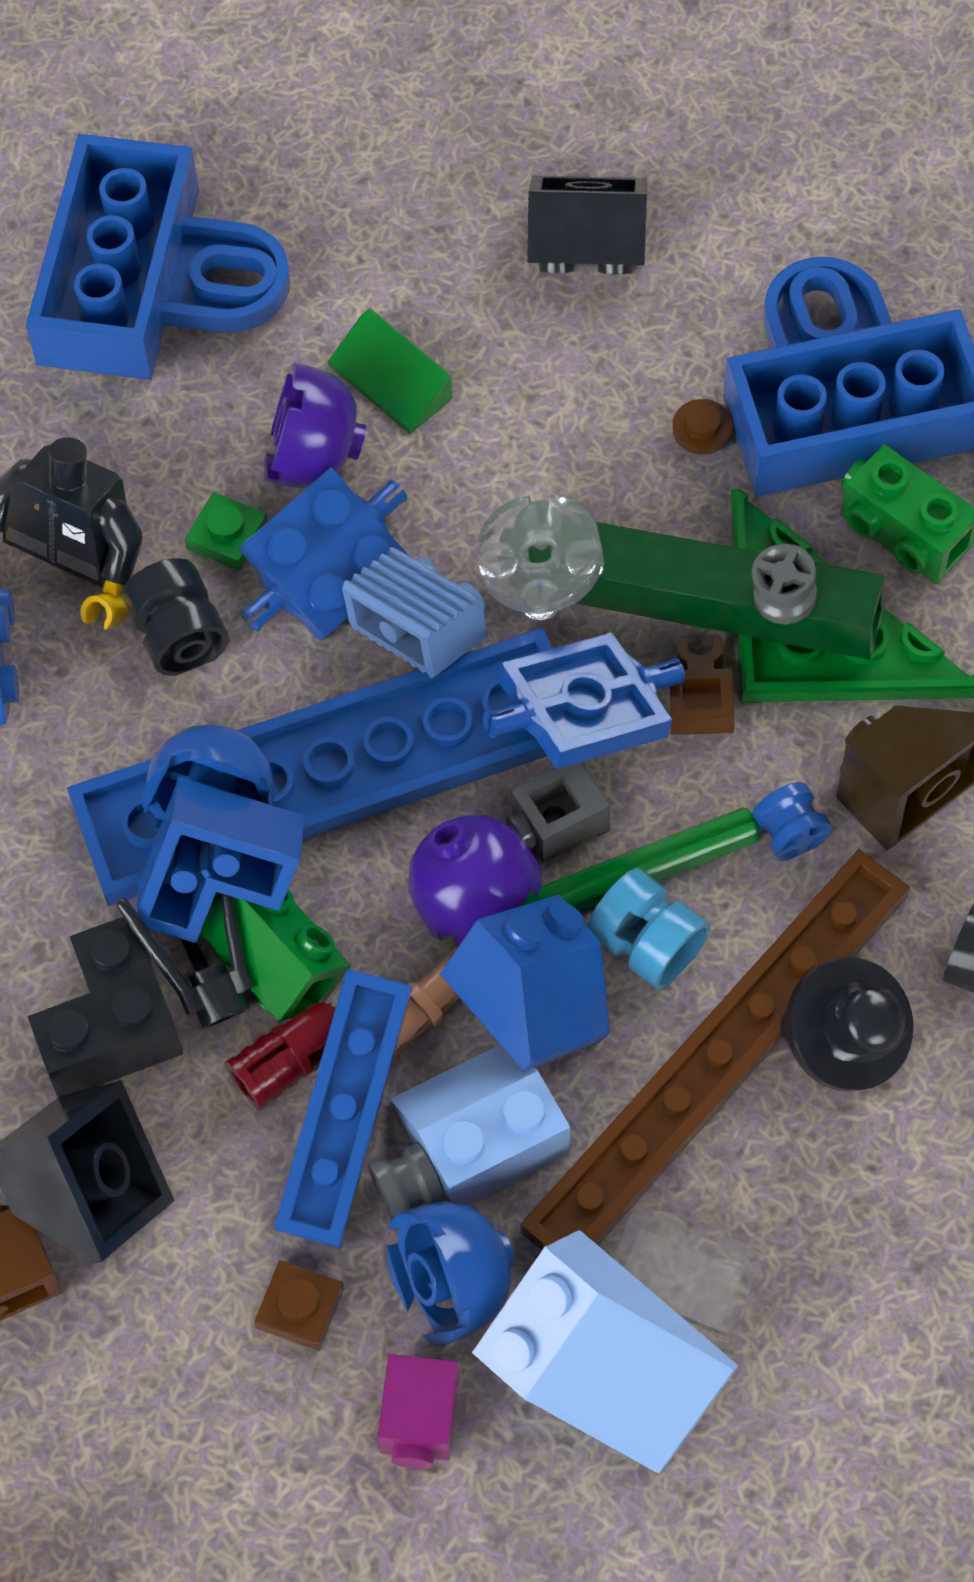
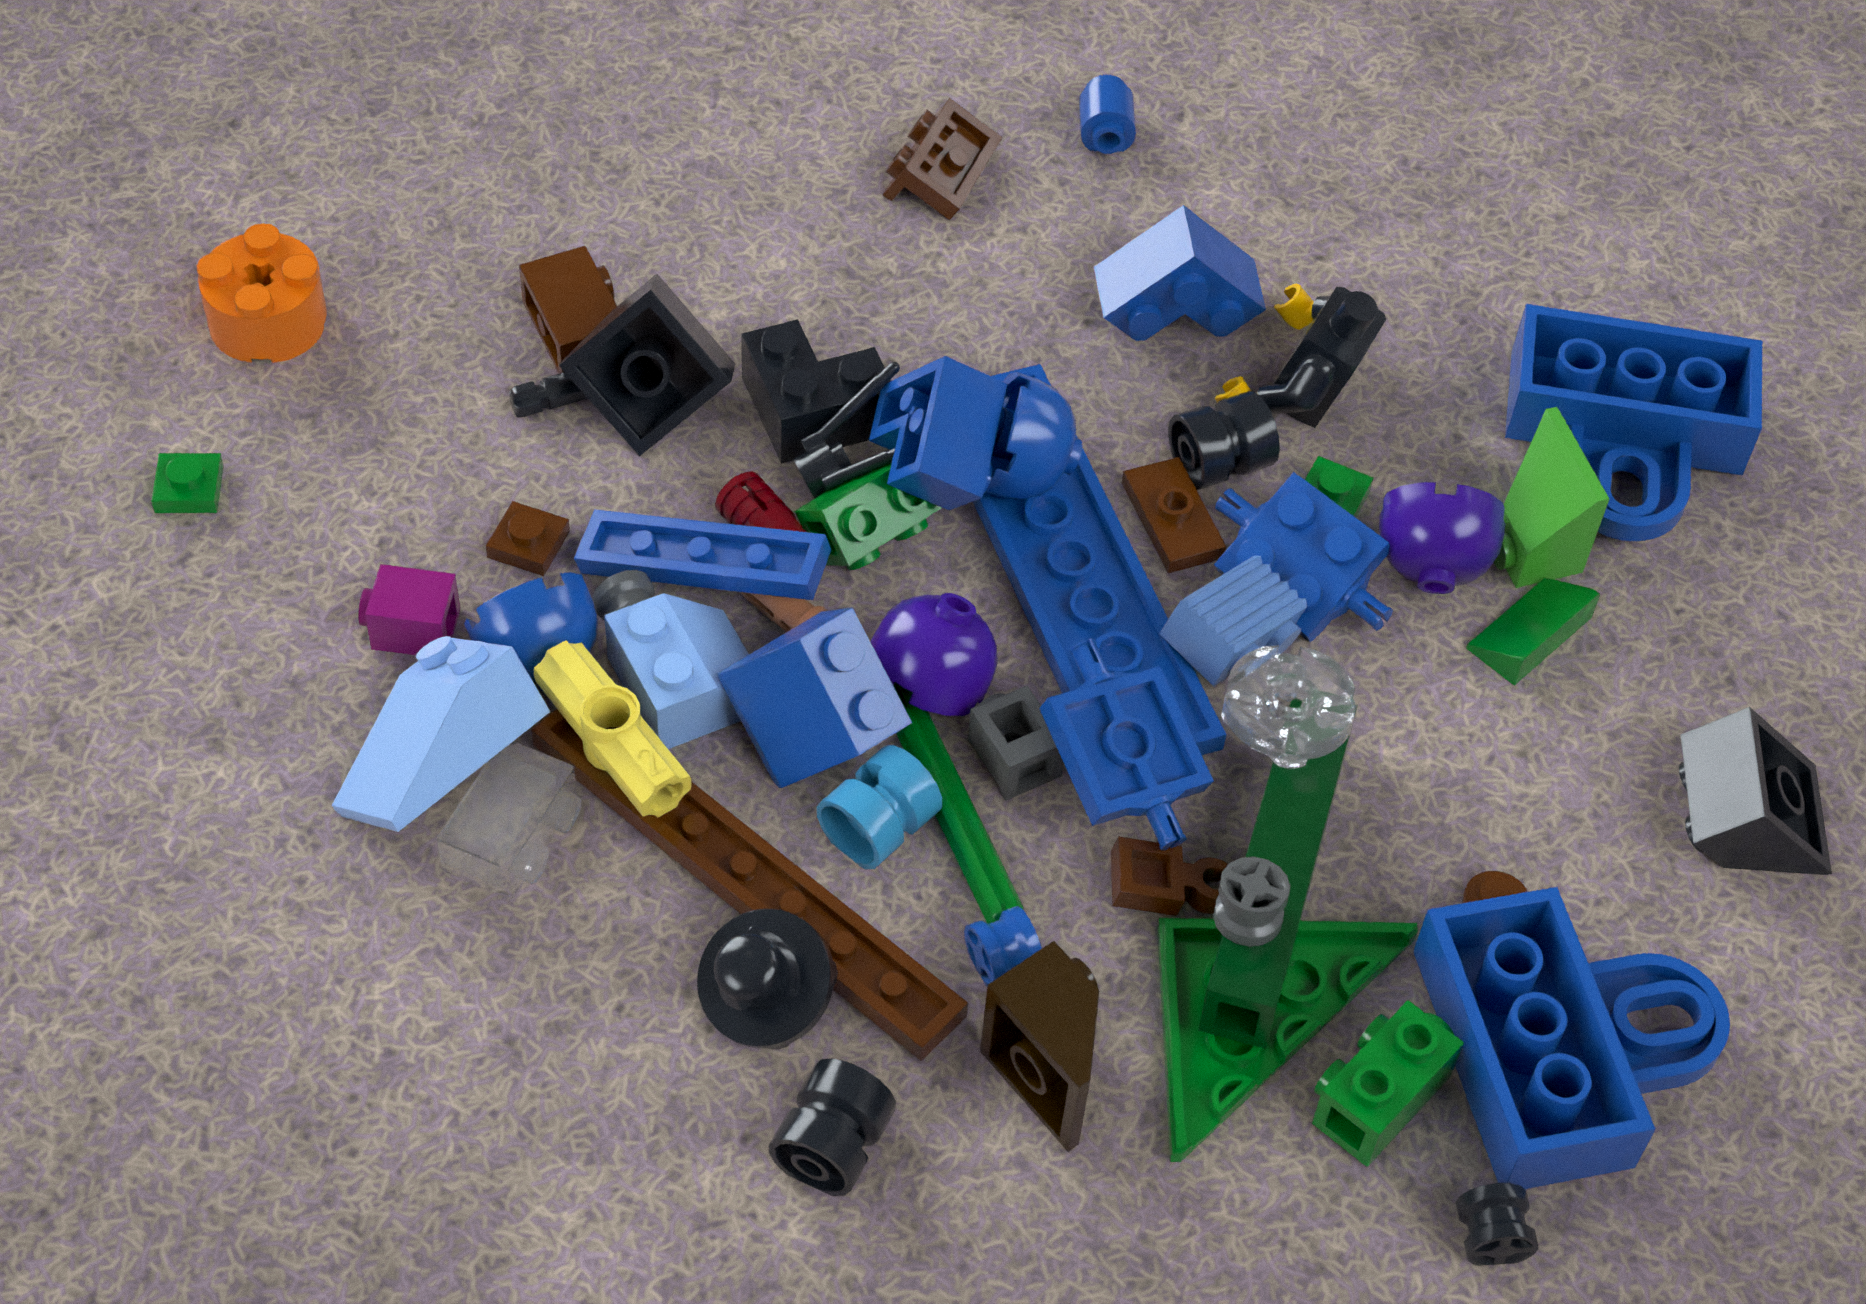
camera: 85 degrees right, 10 degrees down
(87, 1295) = (550, 393): none -> black axle
(256, 674) = (1173, 514): none -> reddish brown plate
(261, 329) = (1551, 507): none -> bright green slope
(559, 1198) = (628, 753): none -> light yellow piece

